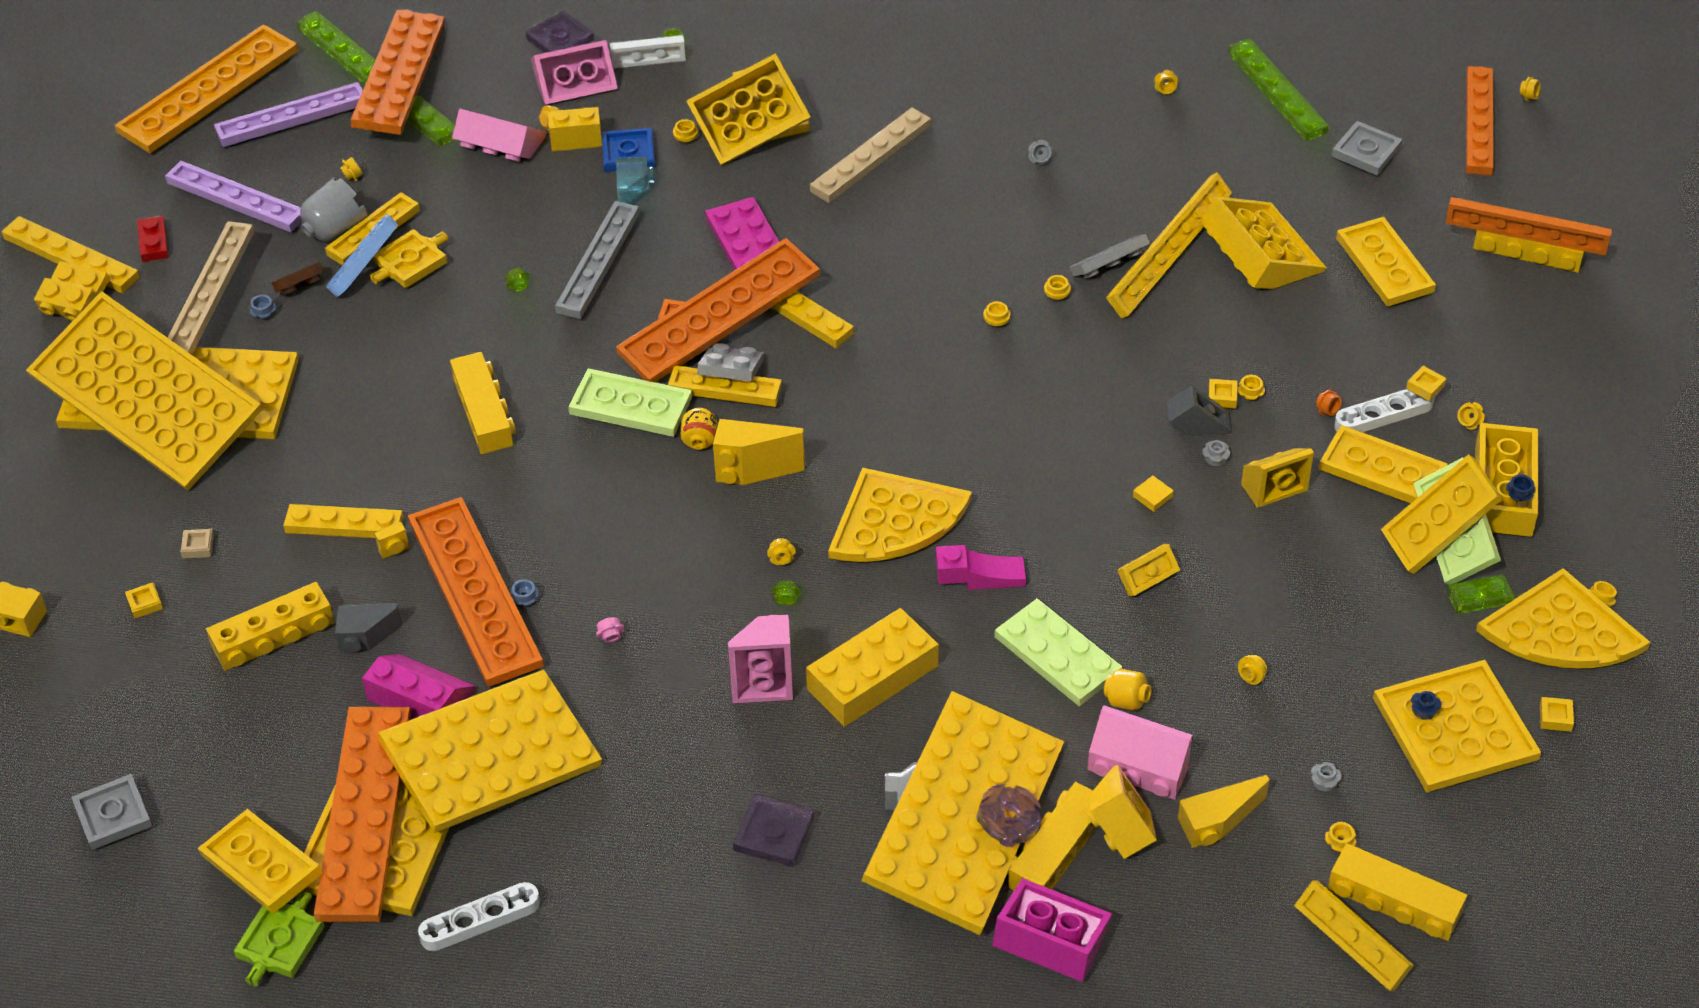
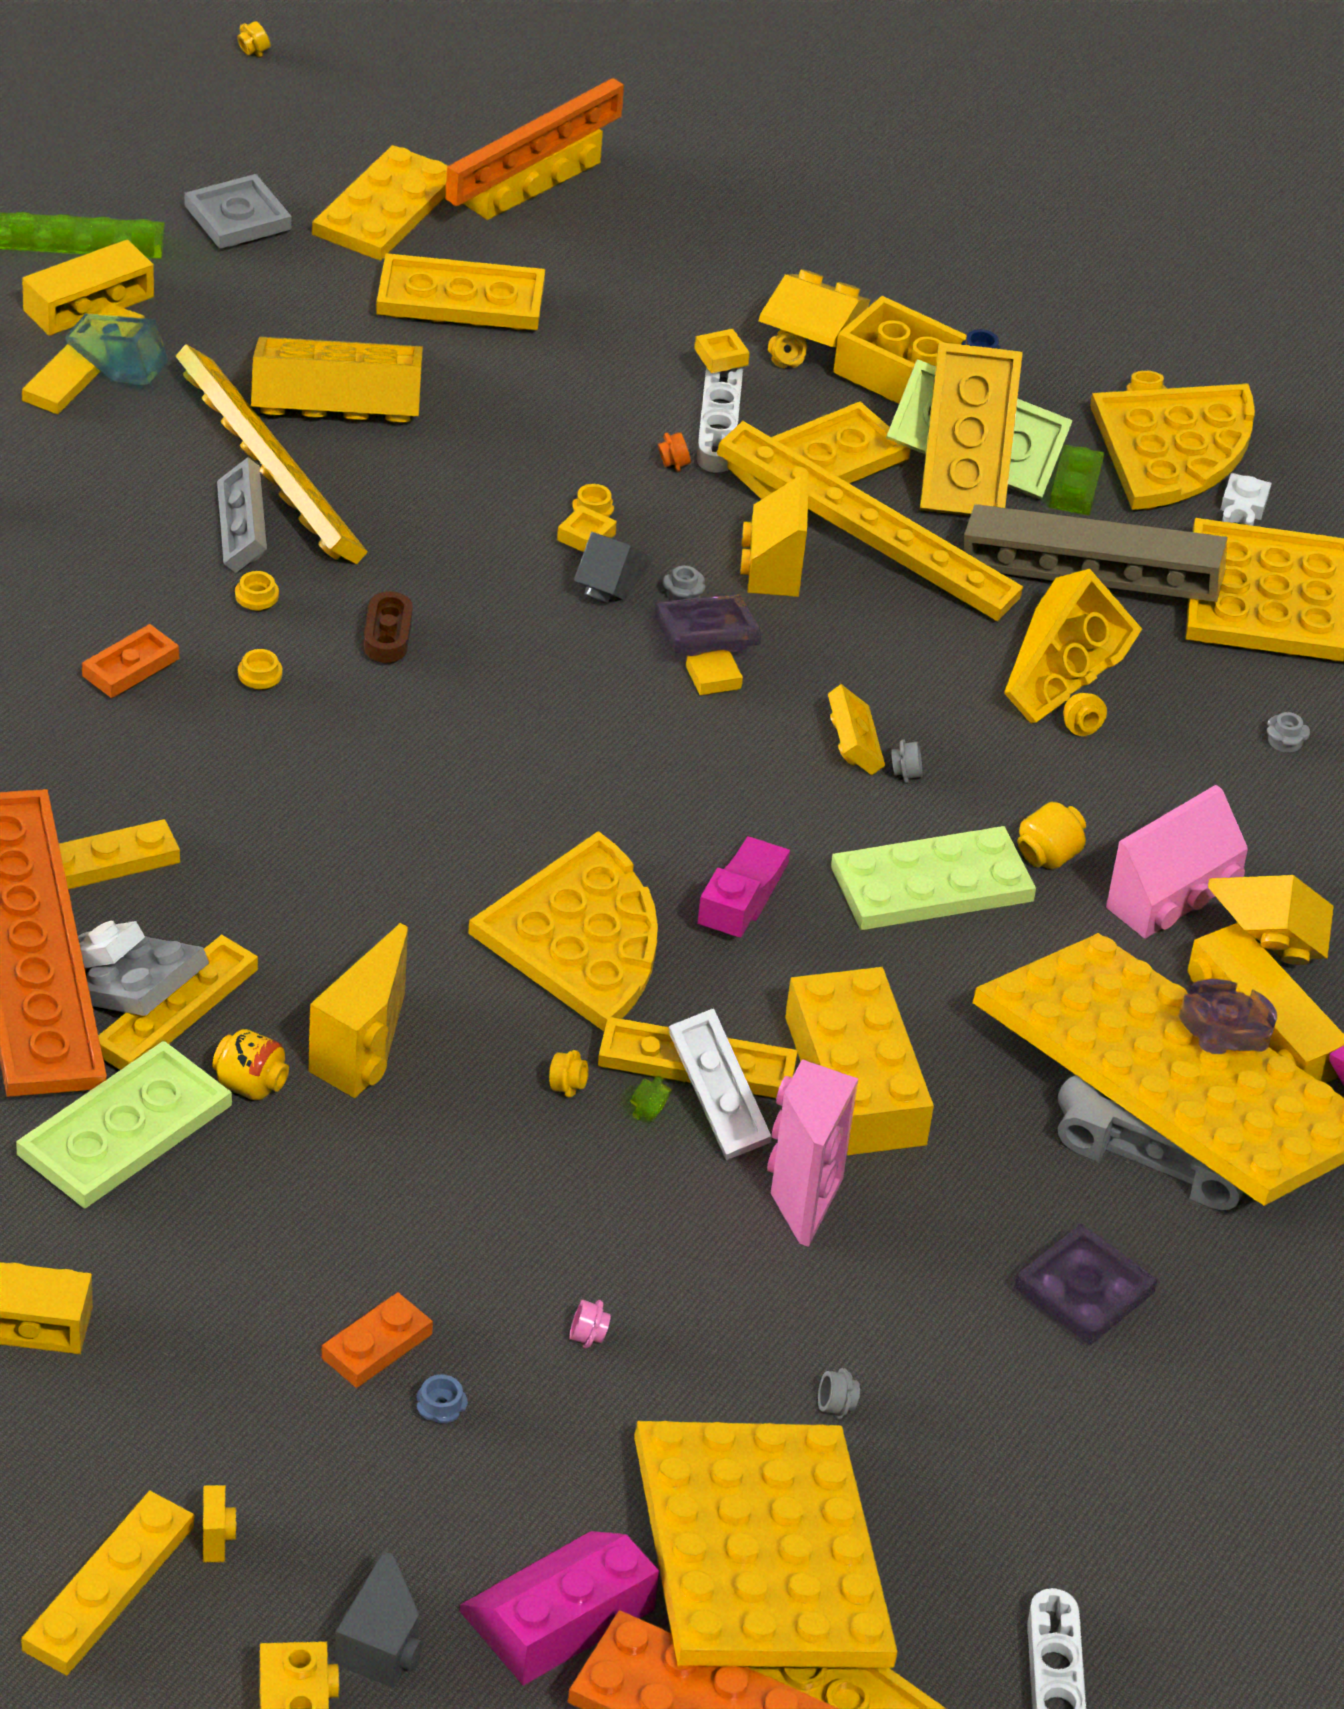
camera: 70 degrees left, 5 degrees down
(475, 592) = (394, 1457): orange plate -> none
(552, 554) = (377, 1339): none -> orange plate
(624, 749) = (838, 1393): none -> light grey plate
(736, 339) = (109, 942): none -> white plate
(812, 607) = (720, 1084): none -> white plate
(829, 598) = (651, 1052): none -> yellow plate
(961, 264) = (130, 661): none -> orange plate
(1071, 347) = (388, 626): none -> reddish brown plate
(1144, 603) = (907, 760): none -> light grey plate
(1181, 471) = (708, 624): none -> clear purple plate
(1188, 147) = (66, 373): none -> yellow tile
(1196, 152) = (120, 346): none -> clear light blue slope
(1217, 812) = (1302, 838): yellow slope -> none
(1241, 121) = (87, 284): none -> yellow brick
(1309, 640) = (1069, 642): none -> yellow wedge
(1332, 508) = (873, 522): none -> yellow plate
(1399, 620) = (1116, 552): none -> dark tan brick
(1429, 199) = (383, 203): none -> yellow plate
(1429, 708) = (1244, 591): dark blue plate -> none
(1479, 120) = (266, 105): orange plate -> none
(1502, 403) = (813, 308): none -> yellow slope
(1536, 682) = (1244, 499): none -> white plate
(1556, 714) = (1305, 505): yellow plate -> none

